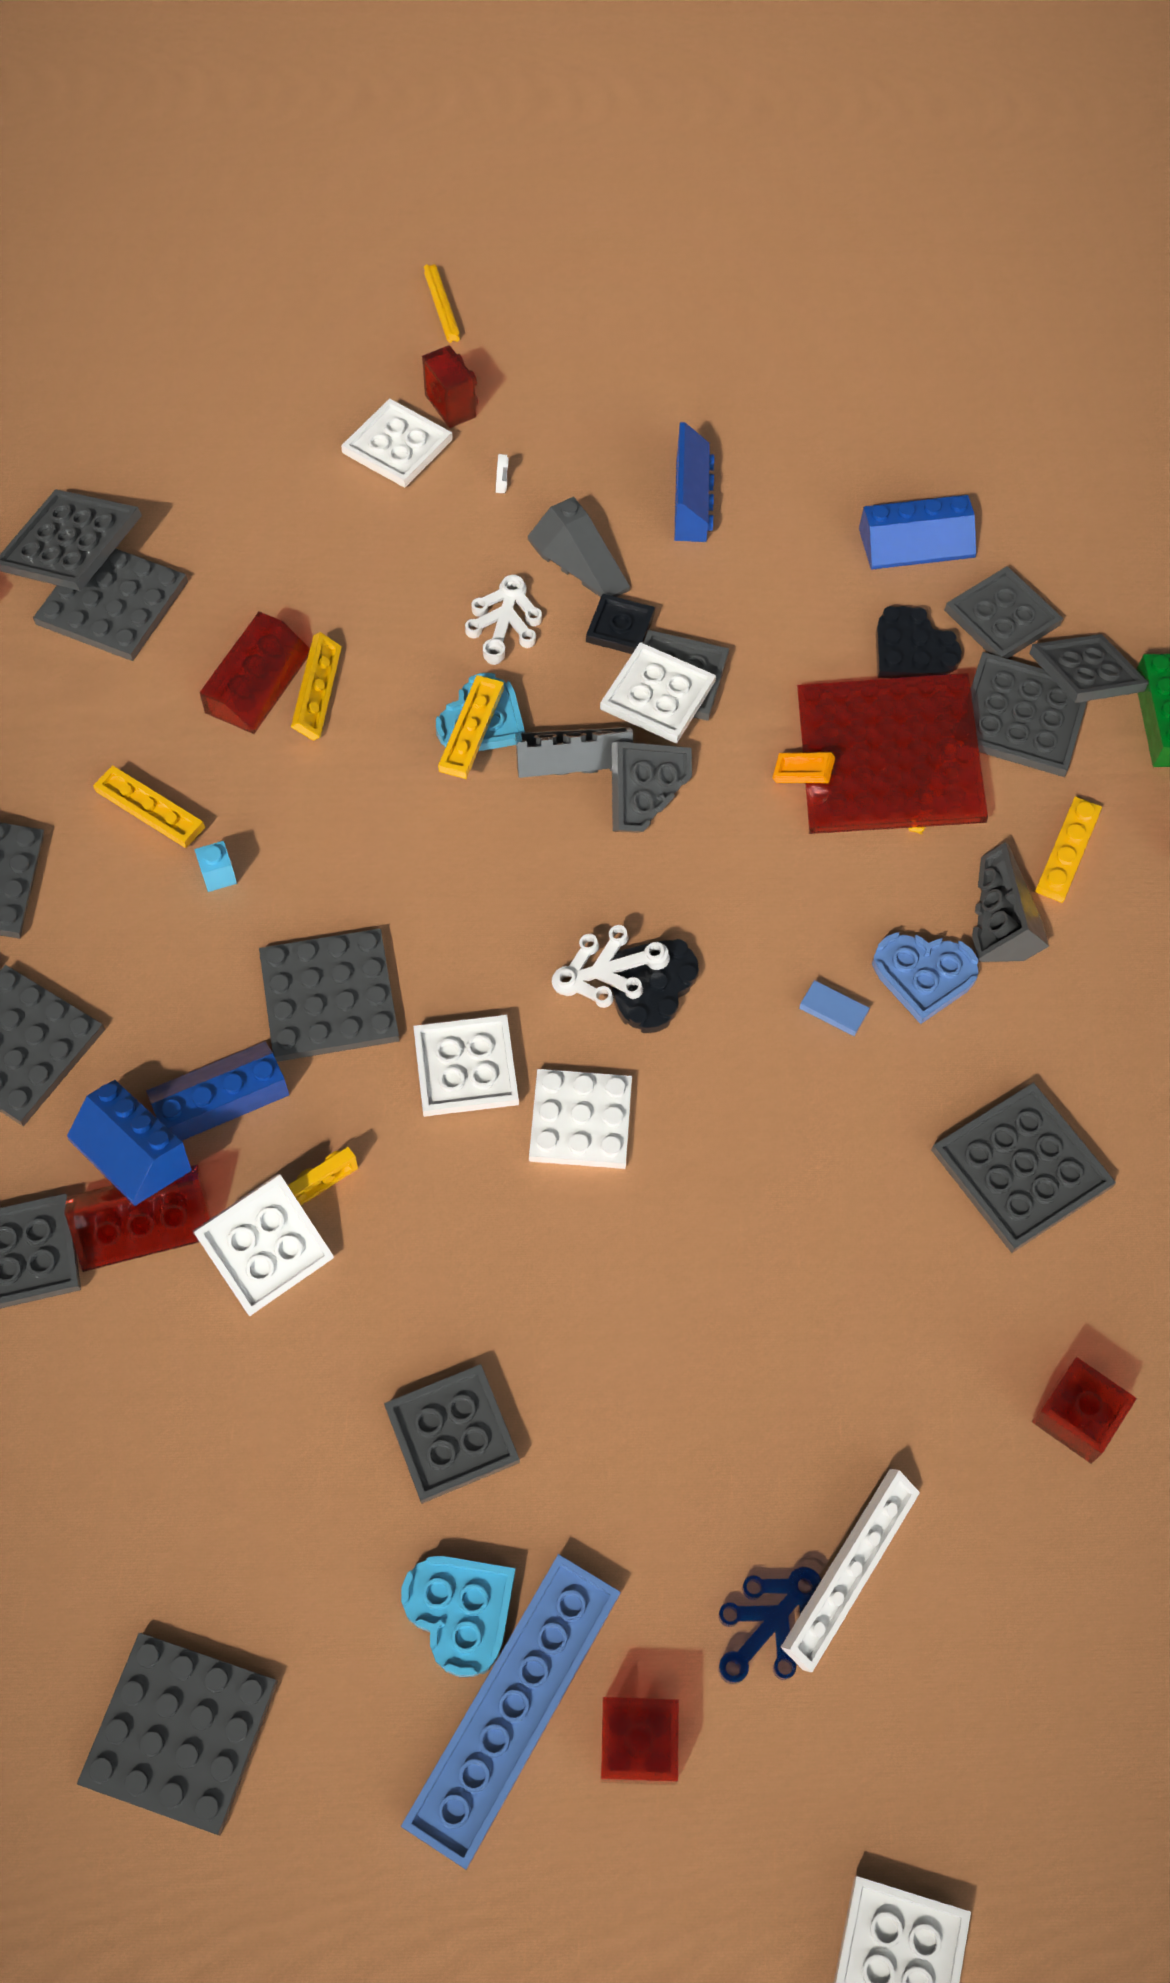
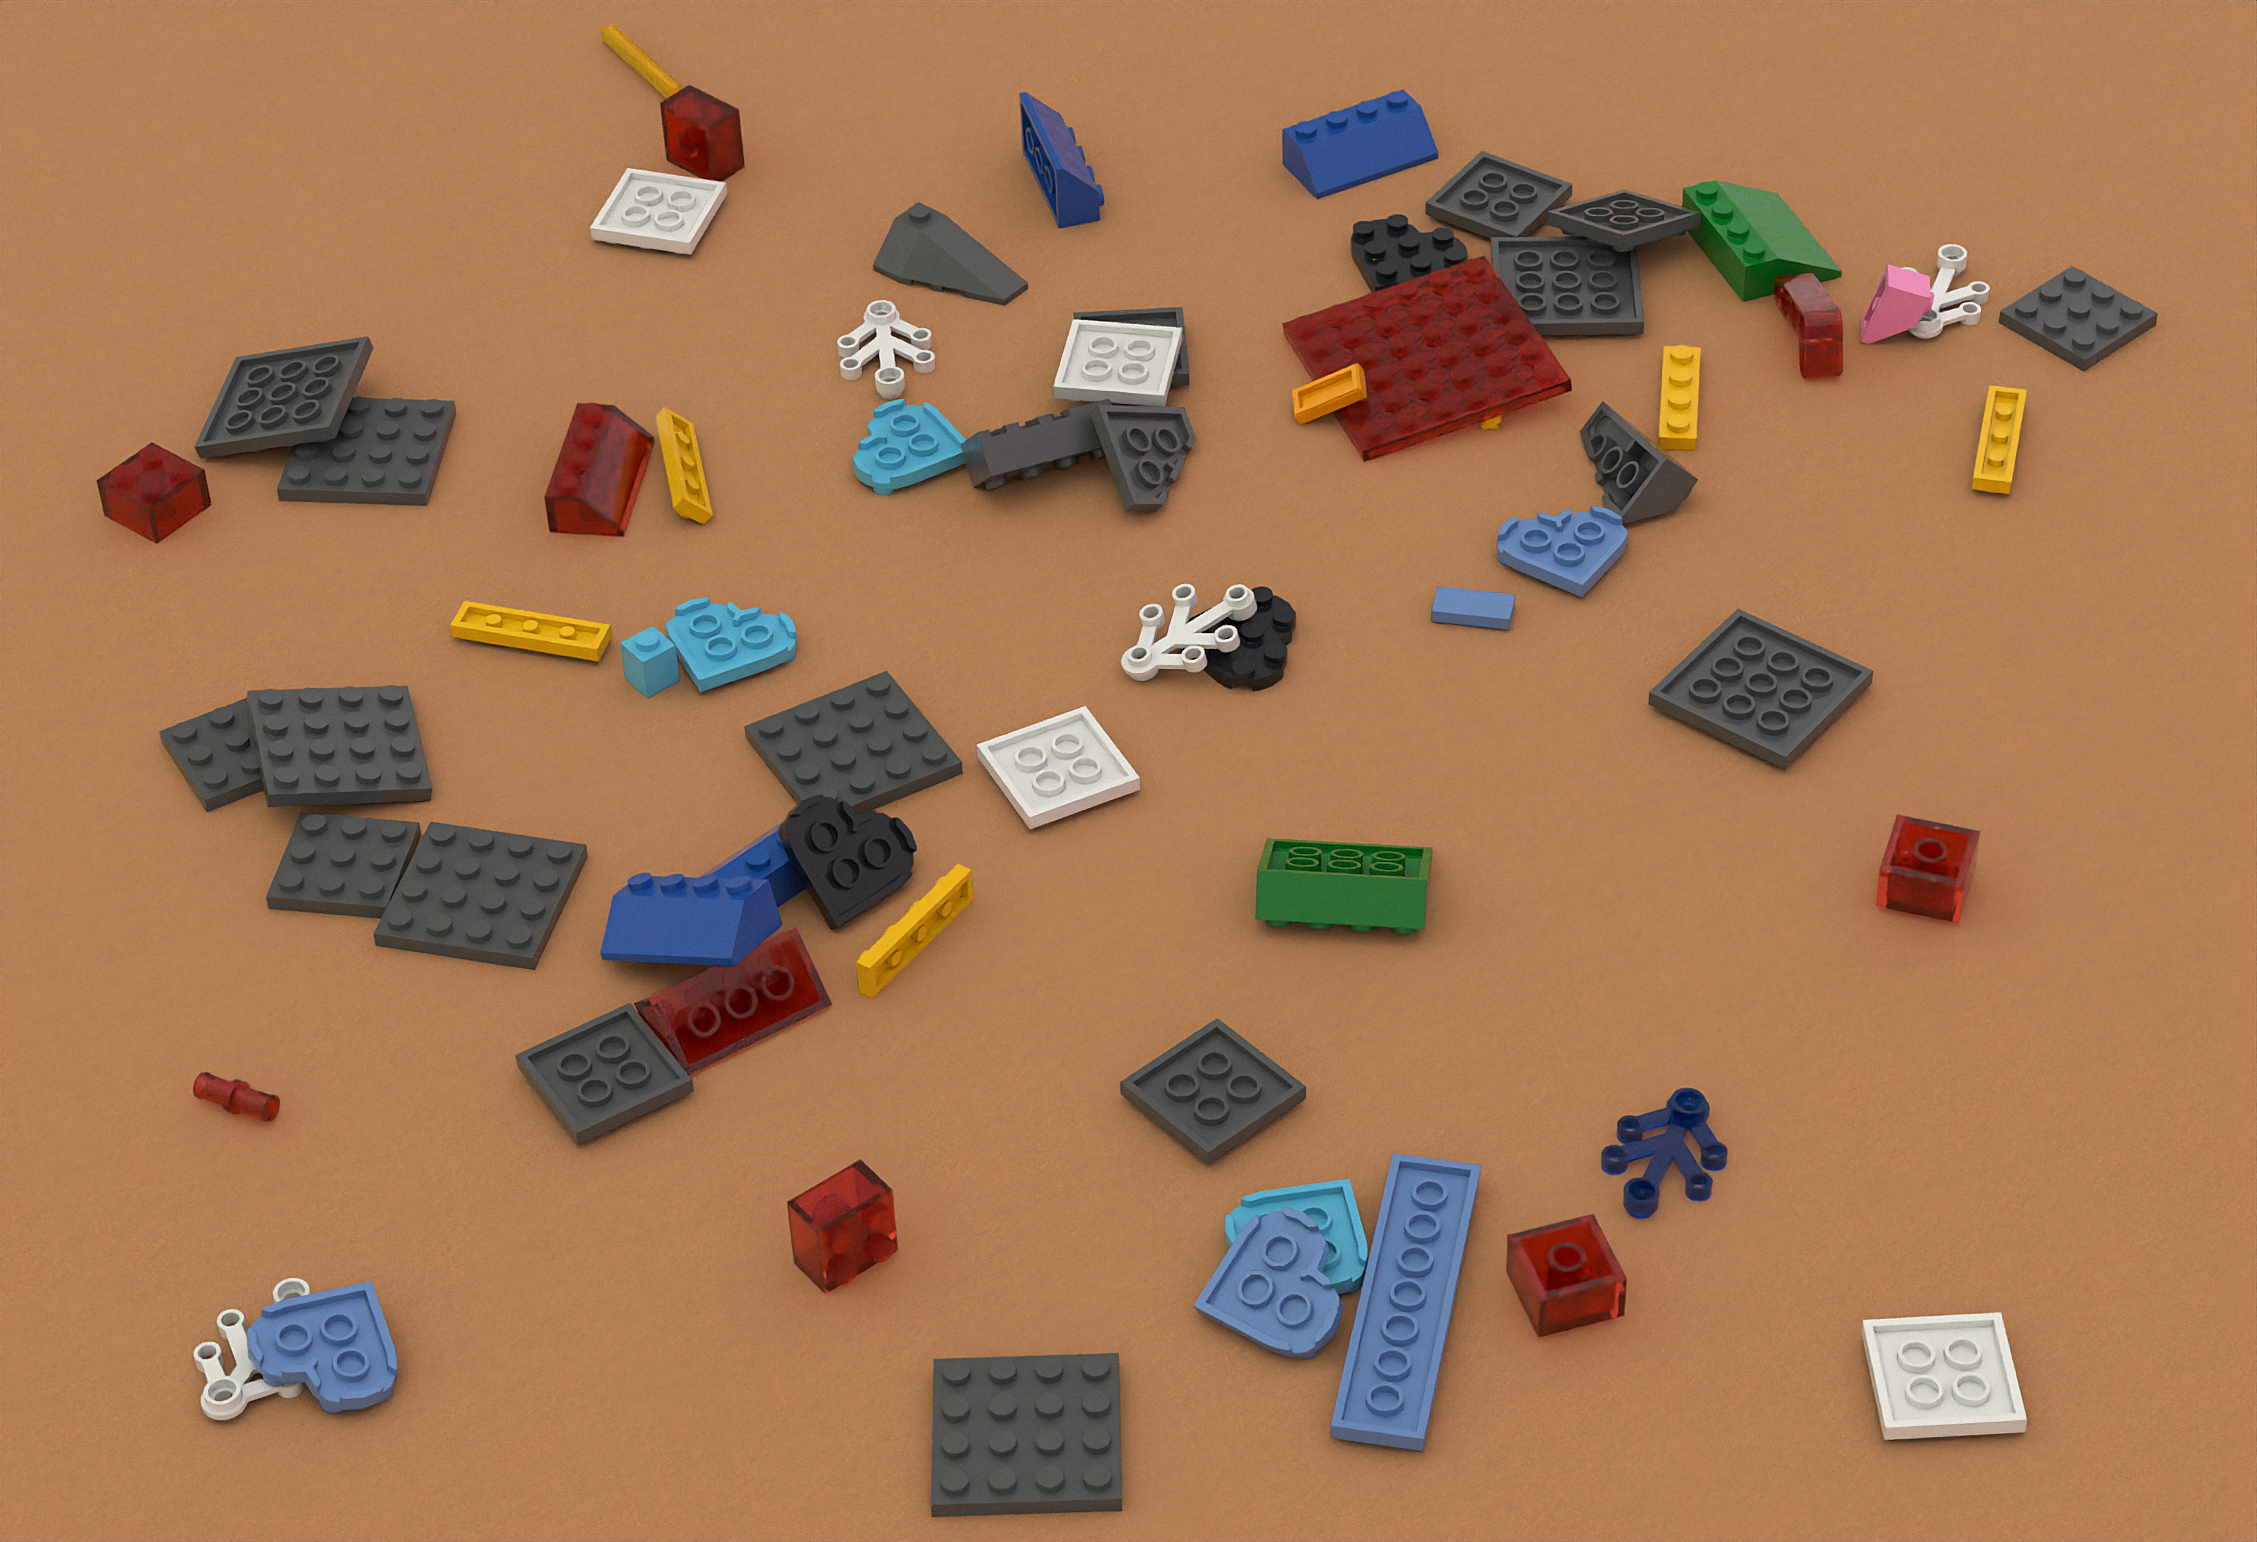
camera: 15 degrees left, 20 degrees down
(117, 1486) = (842, 1226): none -> clear red brick
(263, 1244) = (902, 975): white plate -> none
(271, 1112) = (846, 856): none -> black plate
(281, 863) = (729, 643): none -> medium azure plate
(412, 1665) = (1275, 1286): none -> medium blue plate
(471, 727) = (904, 450): yellow plate -> none
(501, 473) = (811, 220): white tile -> none
(580, 1118) = (1221, 782): white plate -> none
(620, 624) = (1034, 318): black plate -> none
(630, 1256) = (1343, 885): none -> green slope
(850, 1570) = (1732, 1073): white plate -> none

